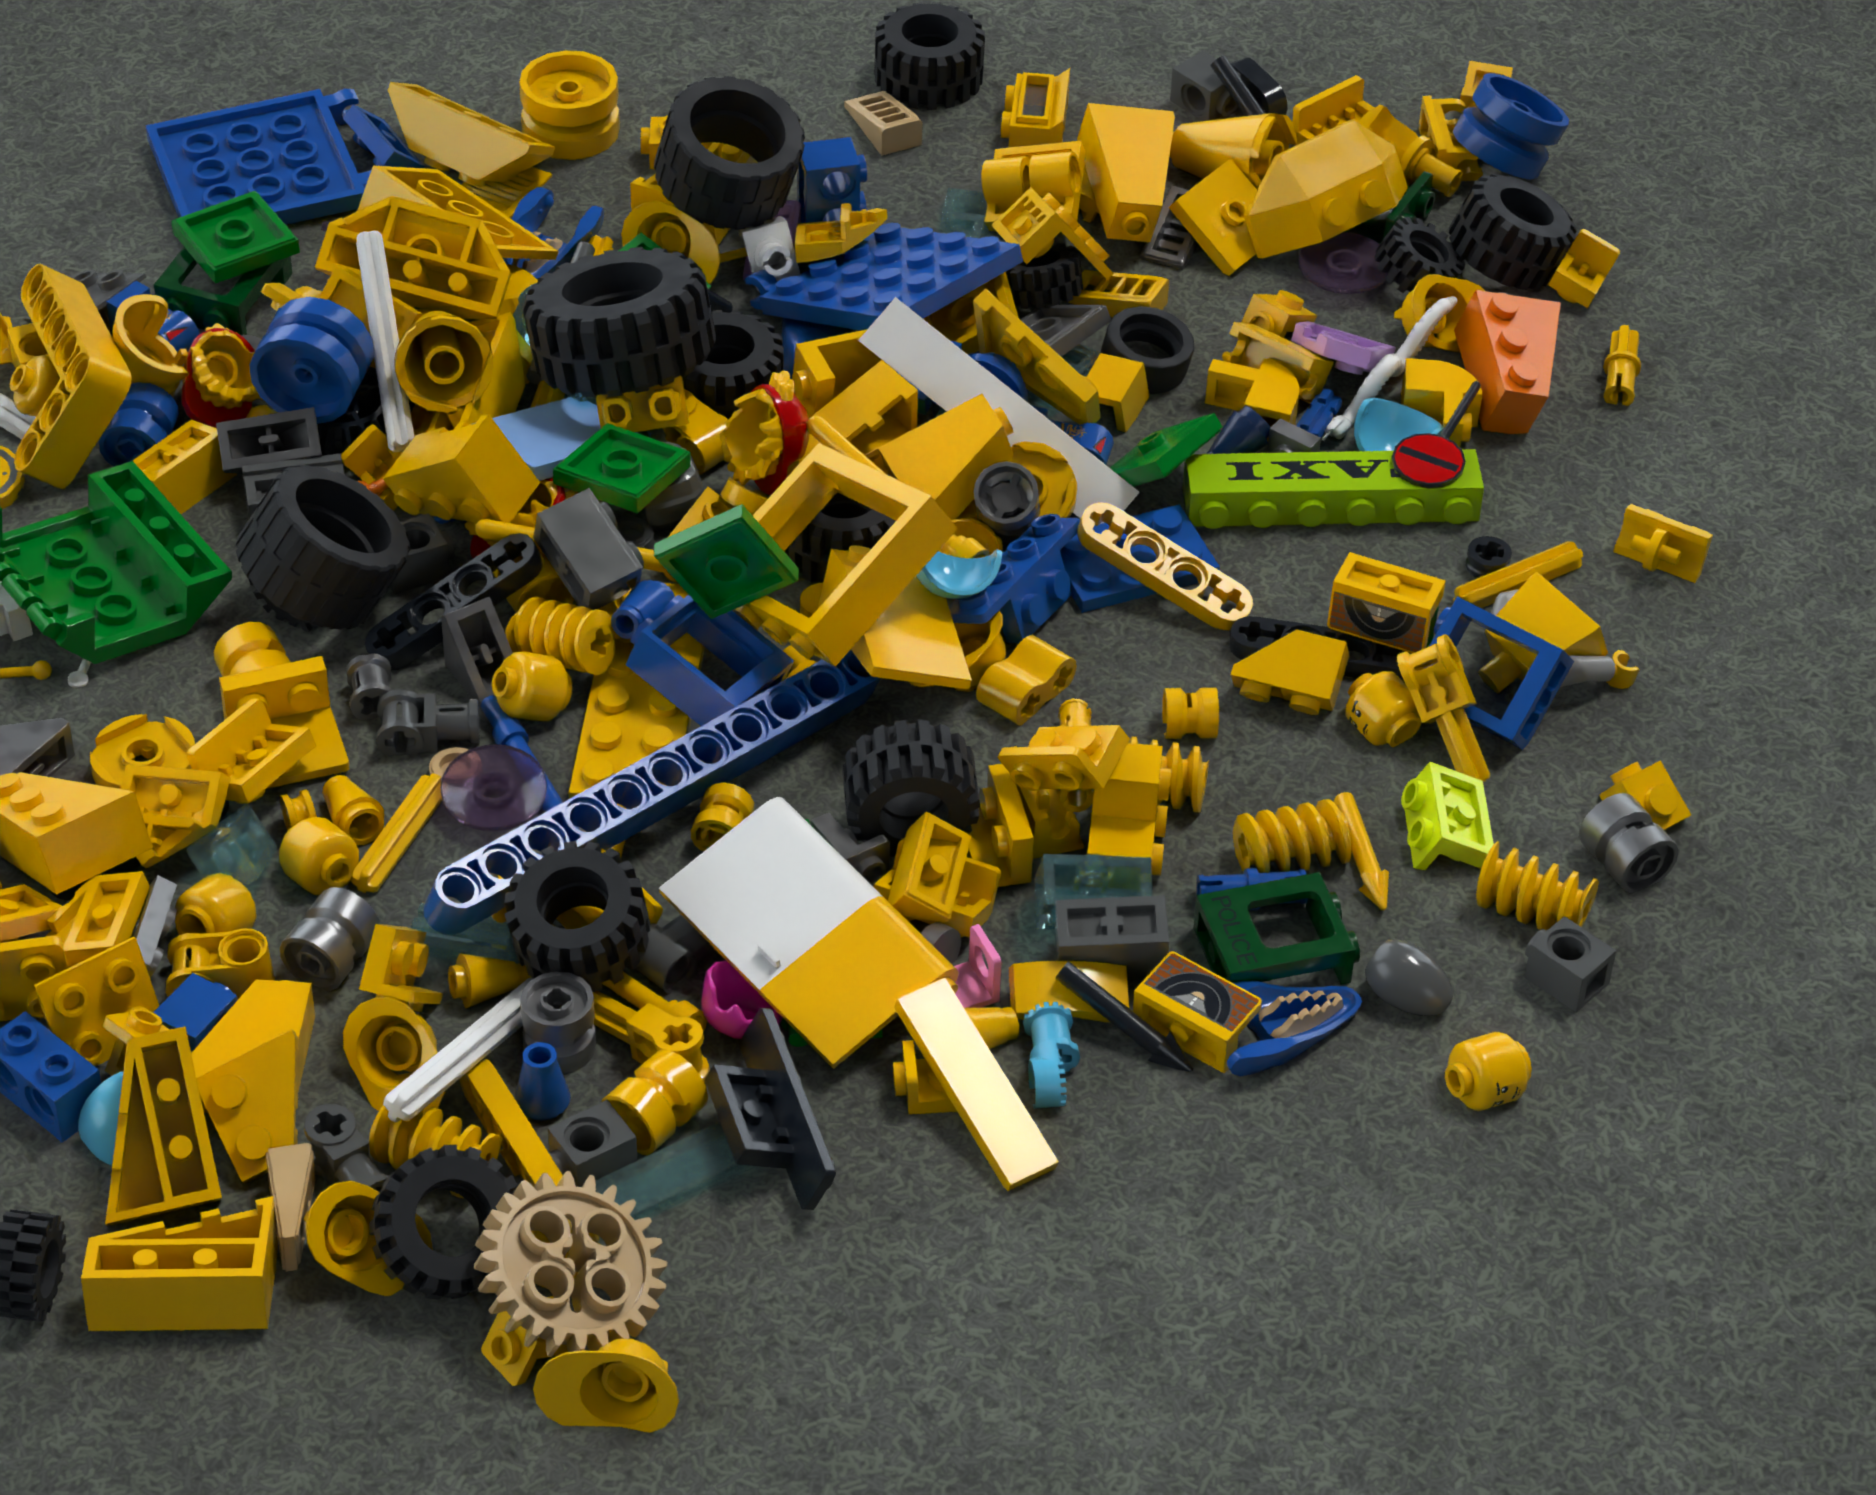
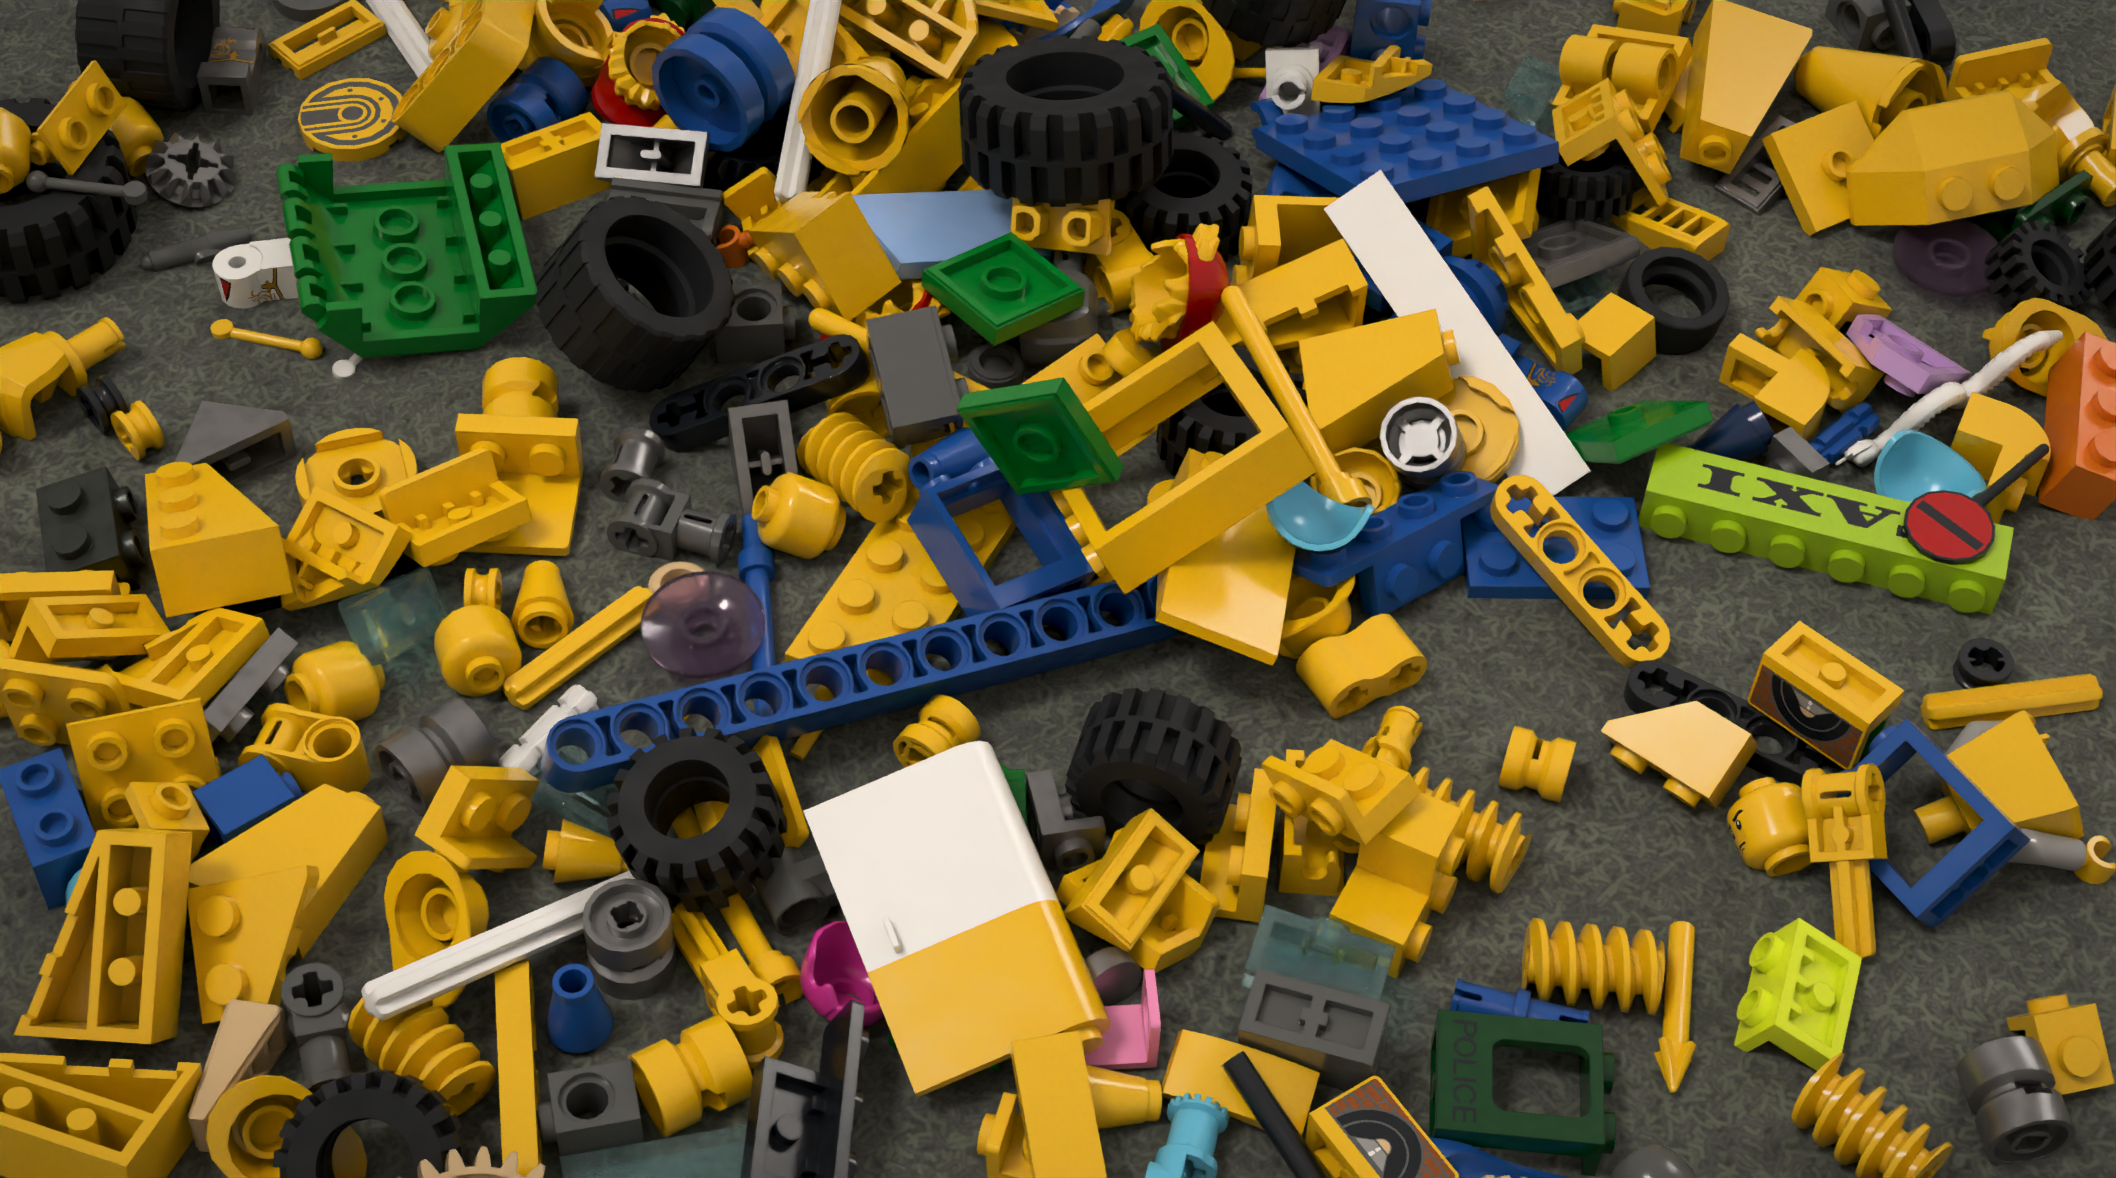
camera: 20 degrees right, 5 degrees up
(409, 893) = (533, 741): none -> white axle

